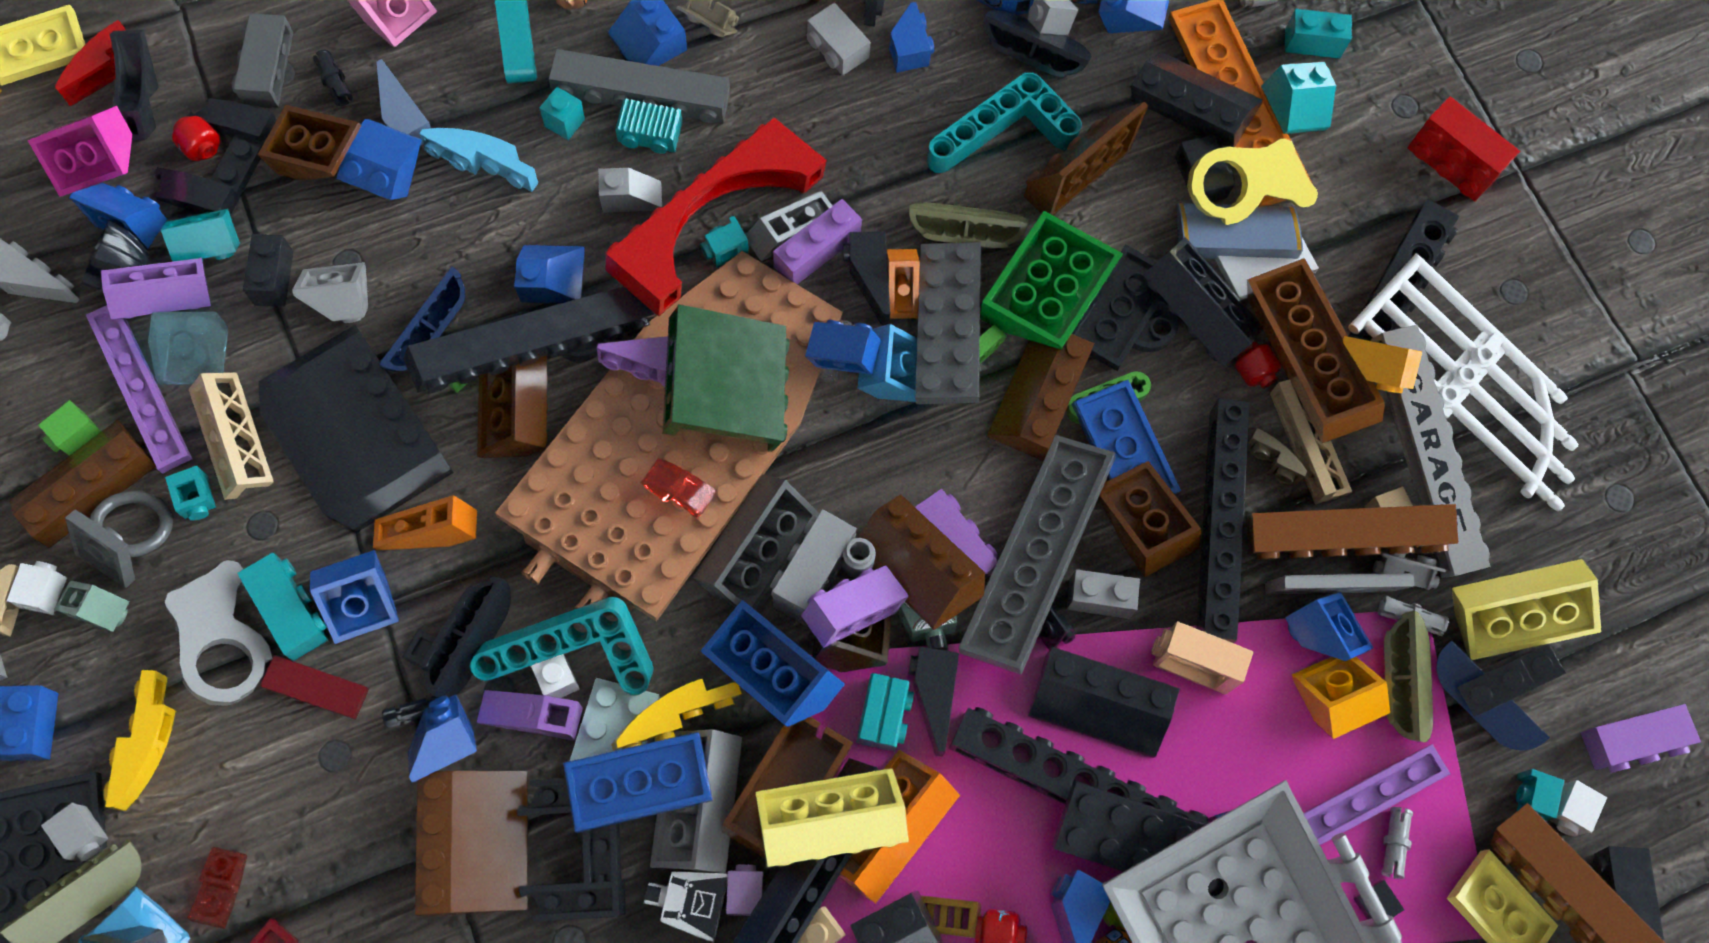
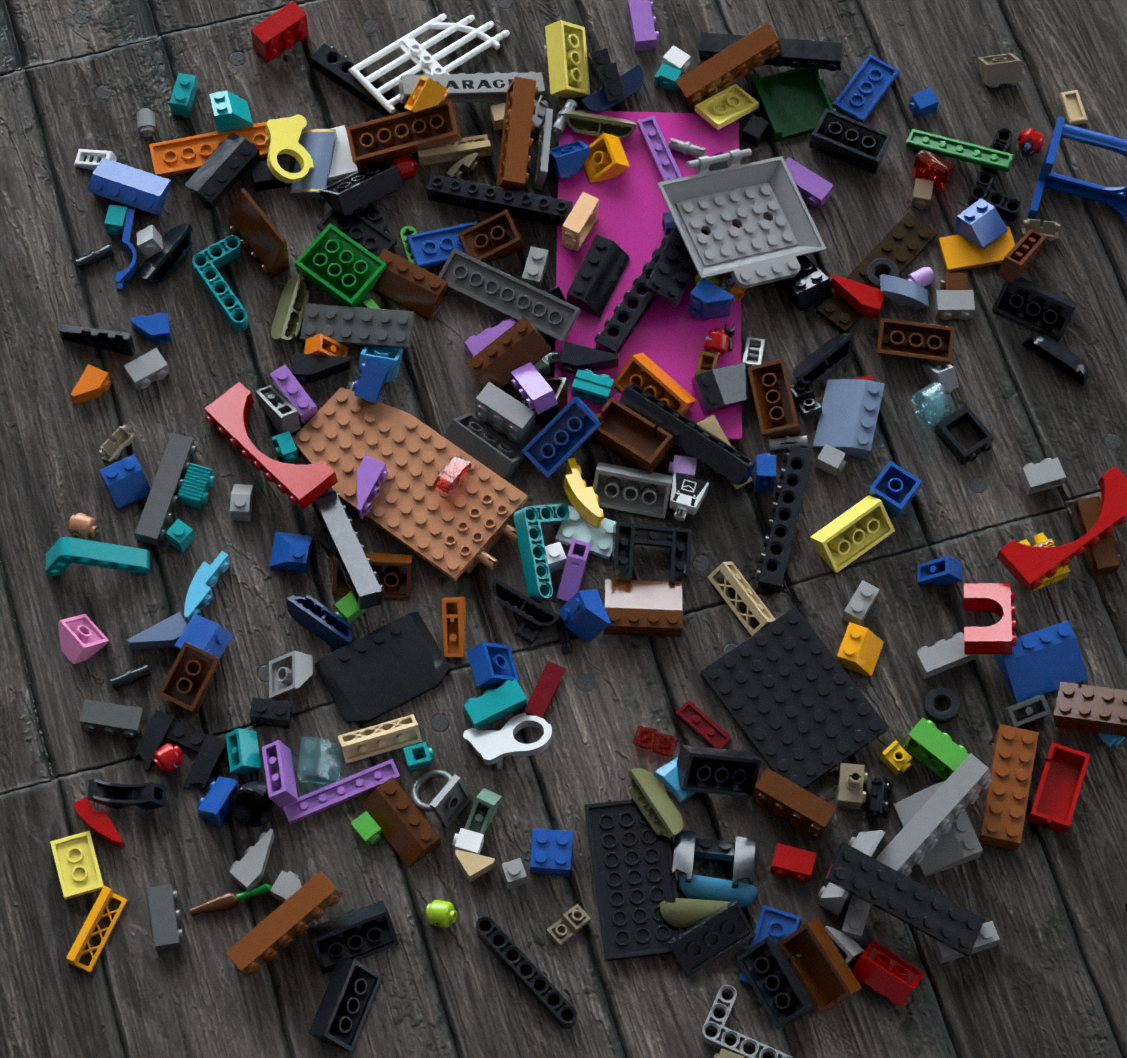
camera: 80 degrees left, 5 degrees down
(75, 833) = (620, 806): light grey brick -> none
(85, 151) = (173, 818): dark pink slope -> none
(137, 757) = (577, 782): yellow slope -> none
(637, 782) = (621, 508): blue tile -> none
(726, 376) = (387, 442): dark green panel -> none
(831, 817) = (652, 405): light yellow slope -> none
(858, 549) = (505, 383): light grey brick -> none

